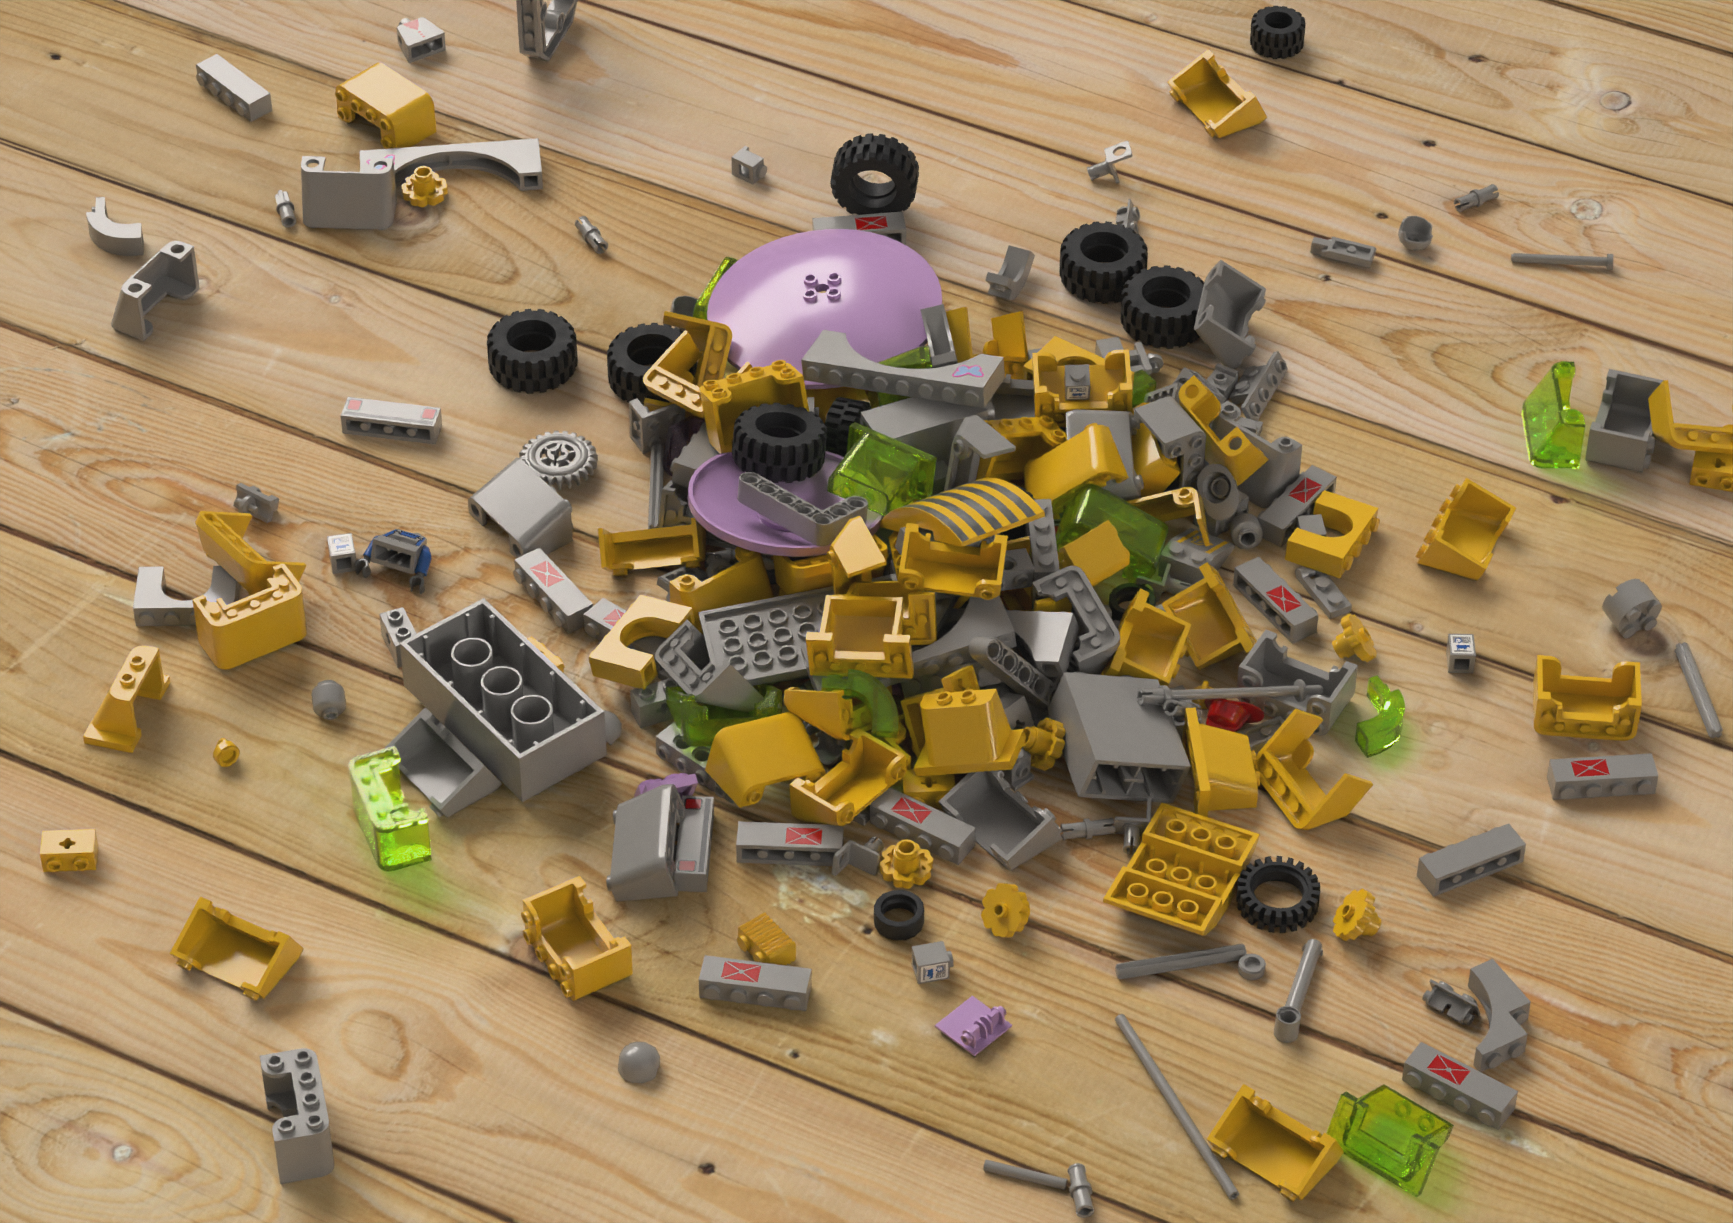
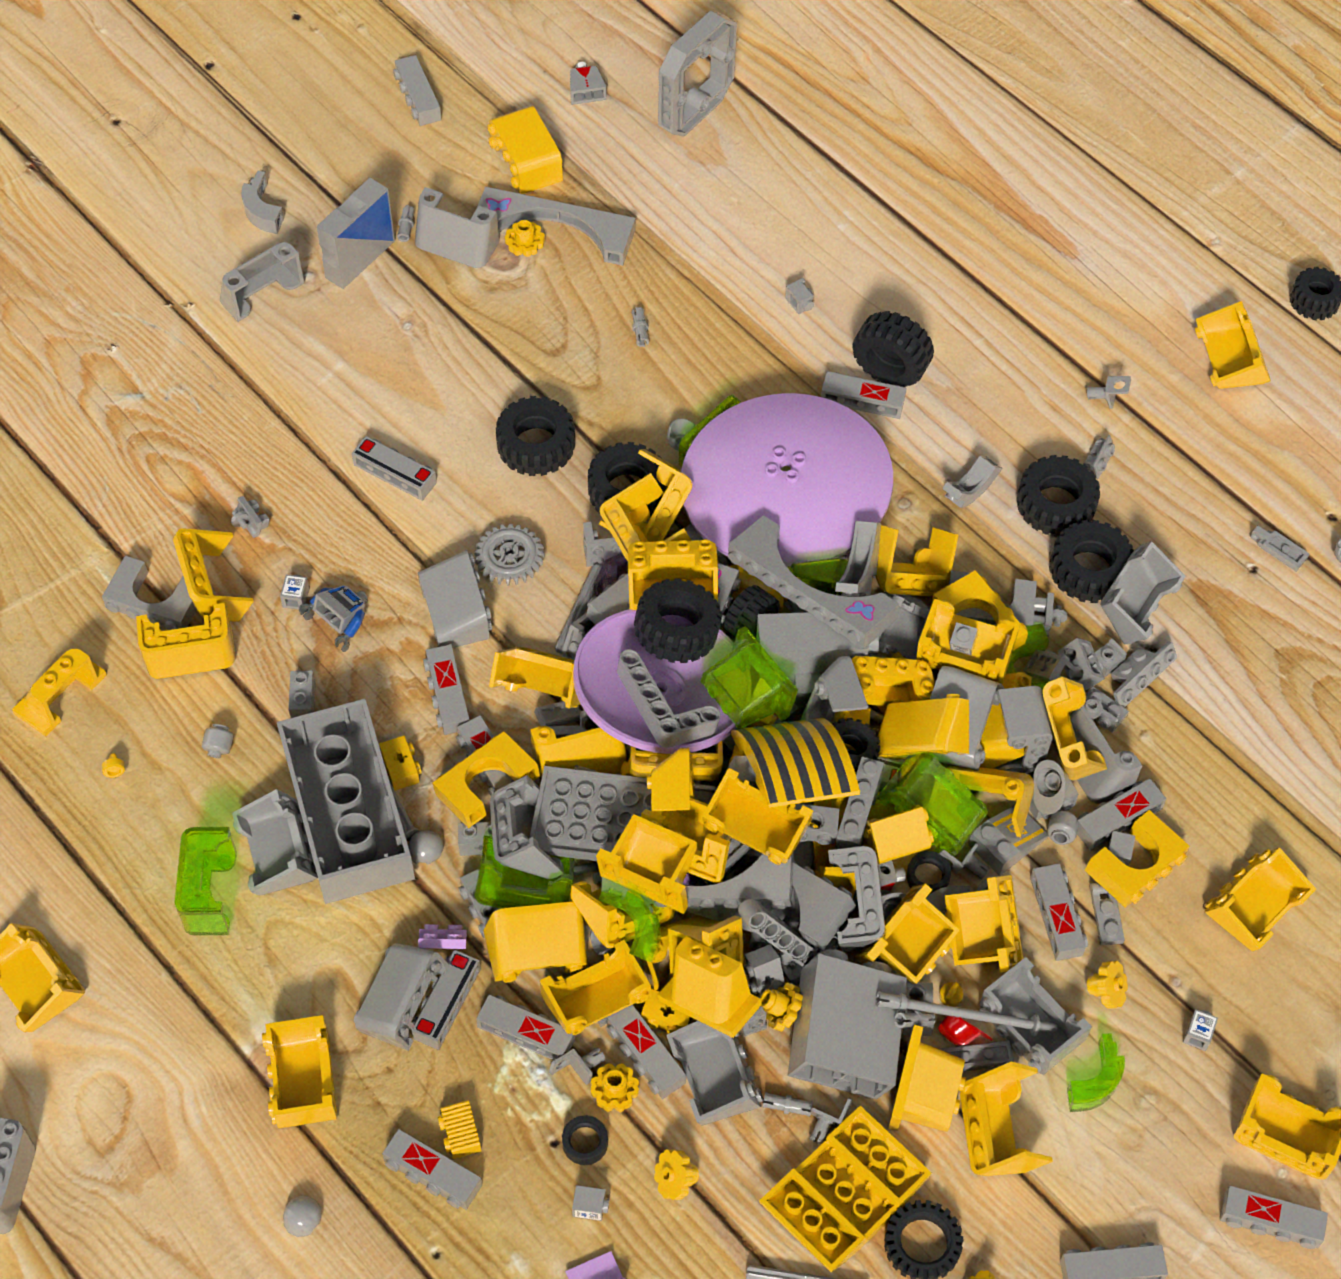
camera: 20 degrees right, 15 degrees up
(245, 218) = (356, 233): none -> light grey tile

